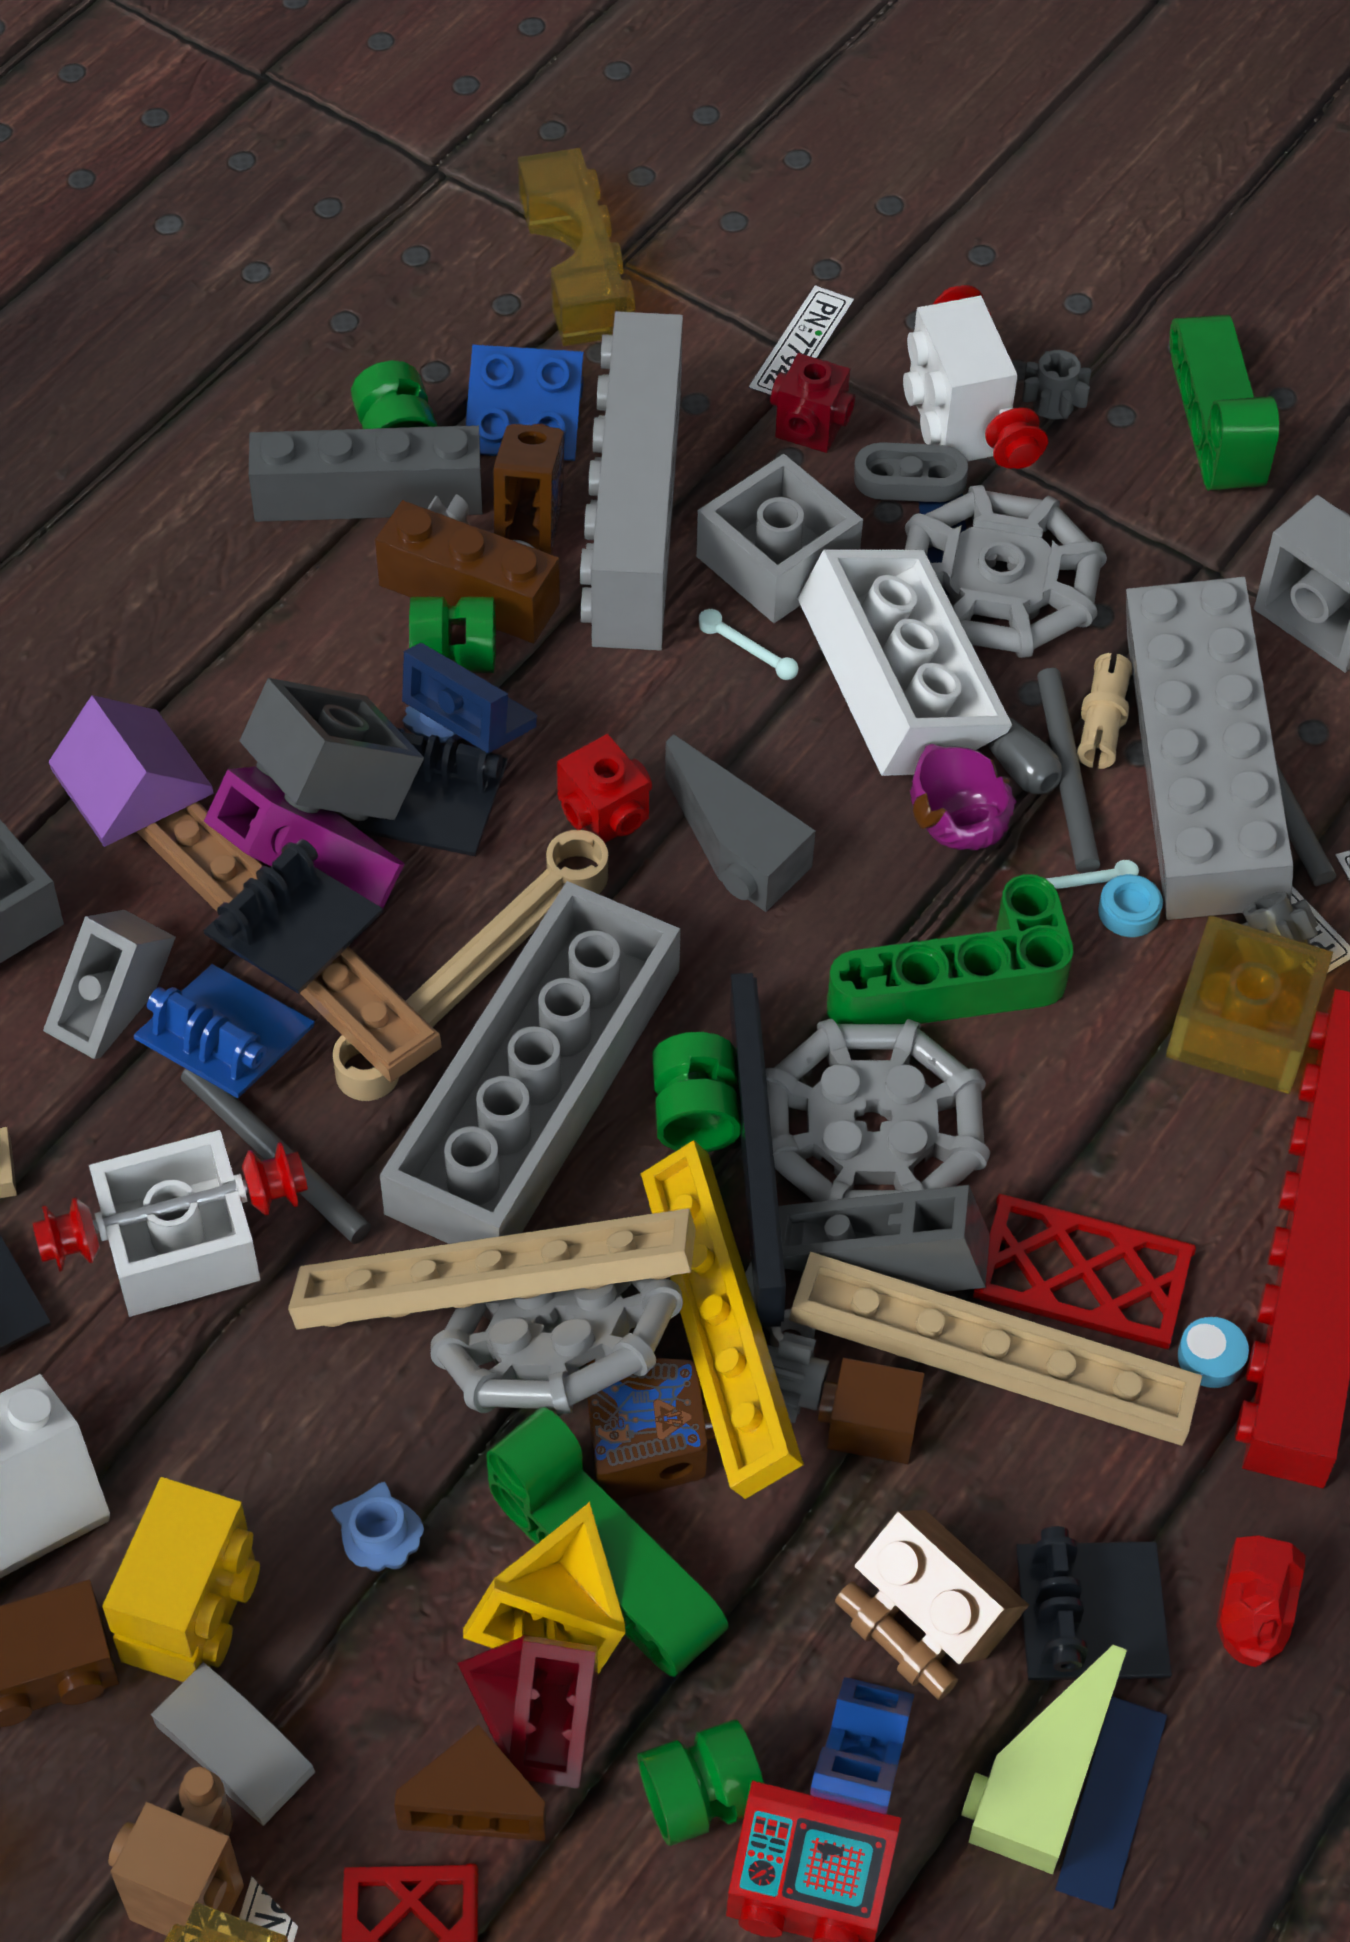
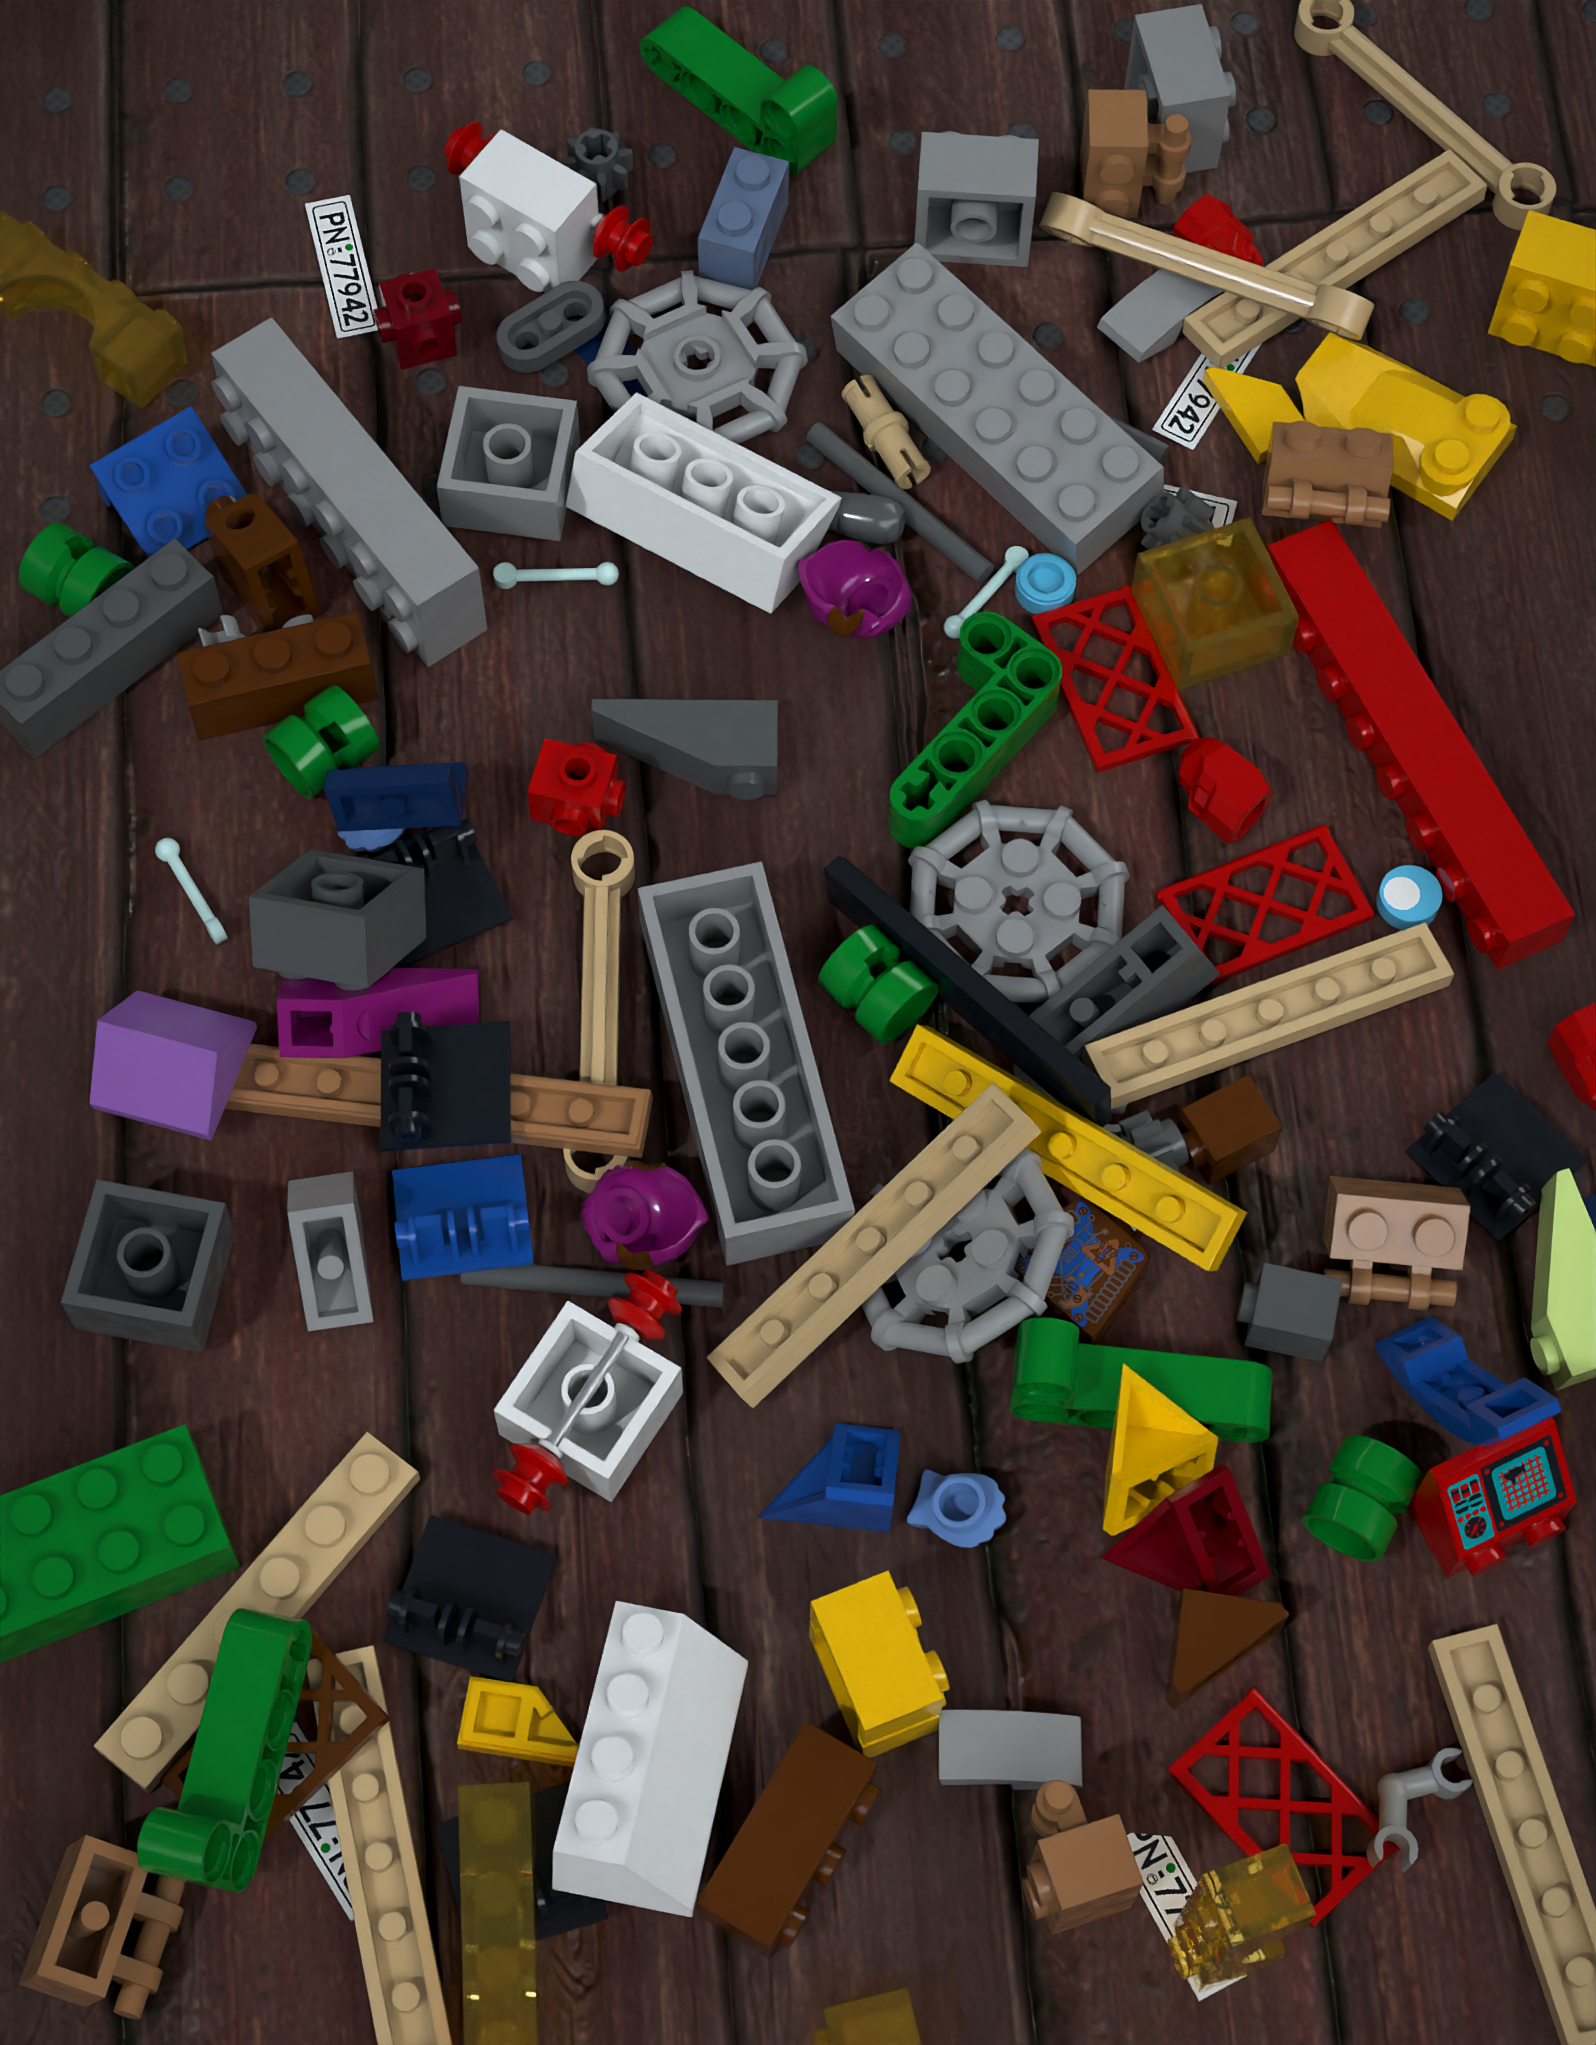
camera: 40 degrees left, 10 degrees up
(280, 640) = (168, 851): none -> light aqua hinge
(317, 1443) = (844, 1482): none -> blue slope
(348, 1122) = (642, 1215): none -> magenta hair
(785, 1587) = (1290, 1311): none -> dark grey brick
(1071, 1025) = (1087, 715): none -> red window
(1125, 1155) = (1223, 788): none -> red rock
(1133, 489) = (744, 219): none -> sand blue brick

